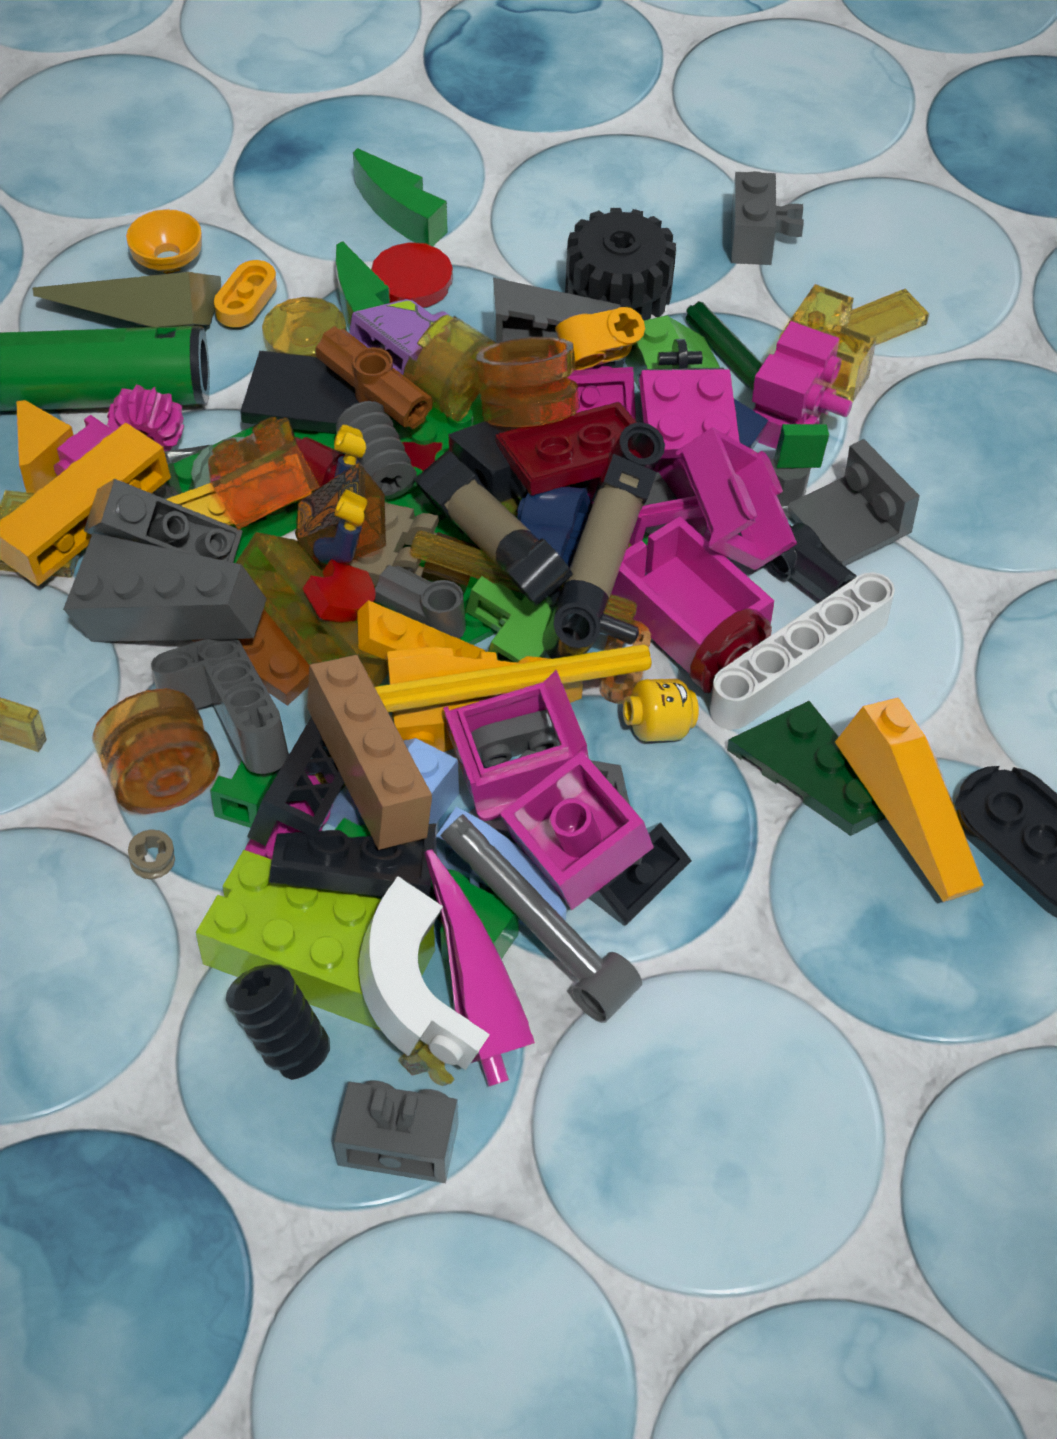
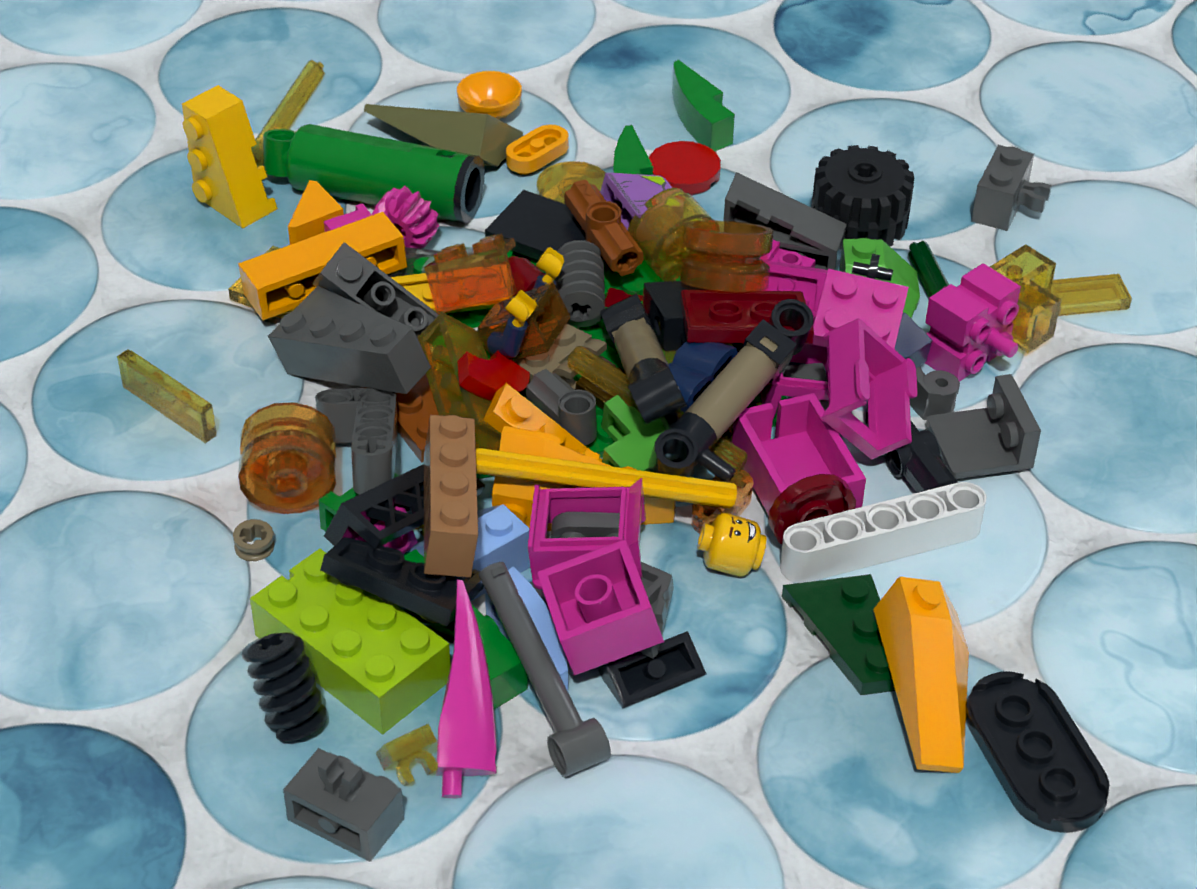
camera: 20 degrees right, 10 degrees down
(395, 987) = (398, 642): white arch -> none
(602, 335) = (806, 240): light orange piece -> none
(801, 445) = (951, 366): green tile -> none

